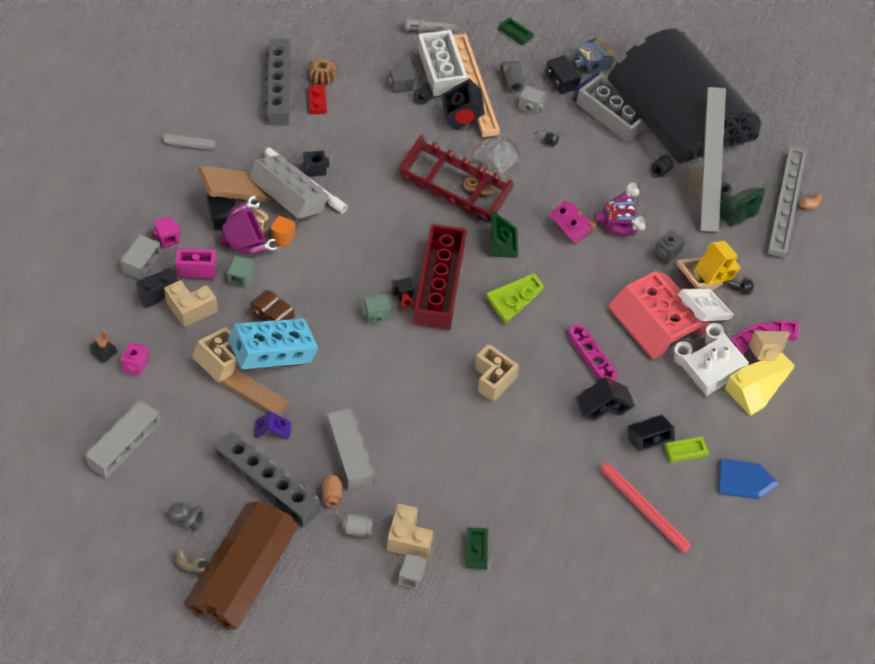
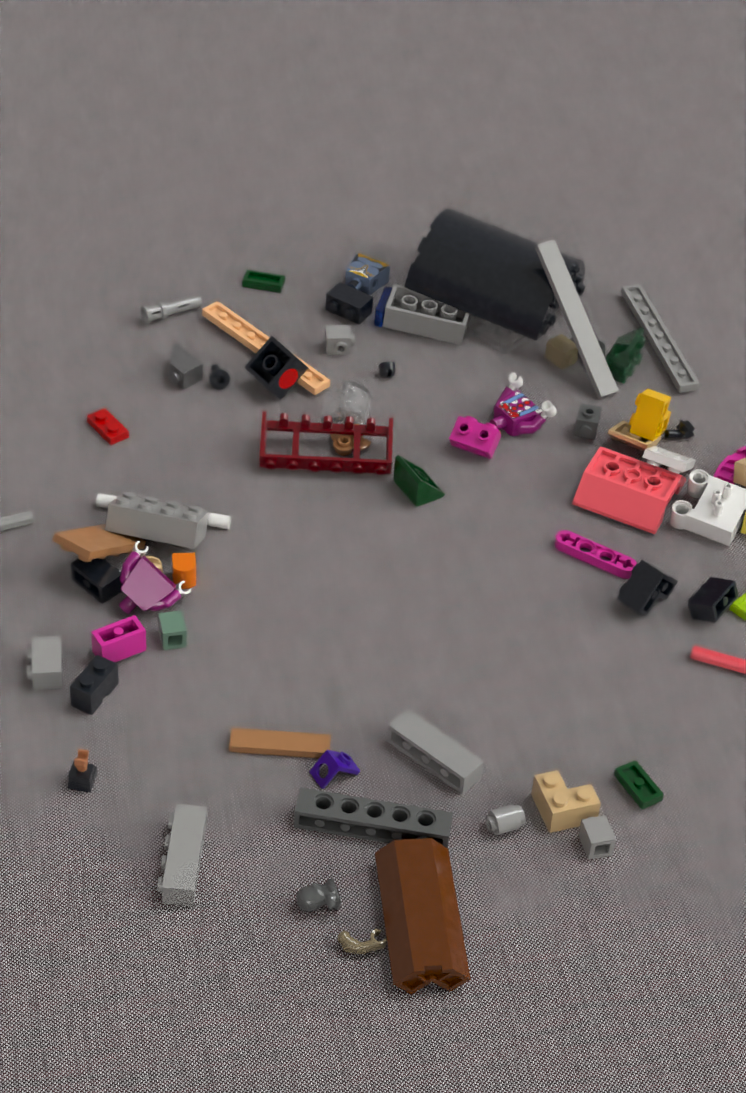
camera: 30 degrees left, 10 degrees down
(135, 359) = (128, 768): dark pink brick -> none
(166, 231) = (54, 622): dark pink brick -> none
(190, 306) = (144, 688): tan brick -> none
(216, 354) = (221, 721): tan brick -> none
(271, 308) = (238, 652): reddish brown brick -> none
(272, 343) = (275, 680): medium azure brick -> none
(278, 82) = (52, 424): dark grey brick -> none
(315, 163) = (163, 487): black brick -> none
(322, 71) = (92, 395): medium nougat gear -> none
(331, 491) = (451, 799): nougat brick -> none
(376, 309) = (348, 603): sand green brick -> none
(404, 290) = (360, 574): black piece -> none
(440, 276) = (390, 543): dark red brick -> none
(441, 61) = (217, 336): white brick -> none
(497, 372) = (521, 606): tan brick -> none
(511, 72) = (294, 320): dark grey piece -> none
(514, 296) = (475, 532): lime wing -> none
(662, 165) = (517, 351): black wheel -> none
(811, 203) = (680, 331): nougat arm -> none

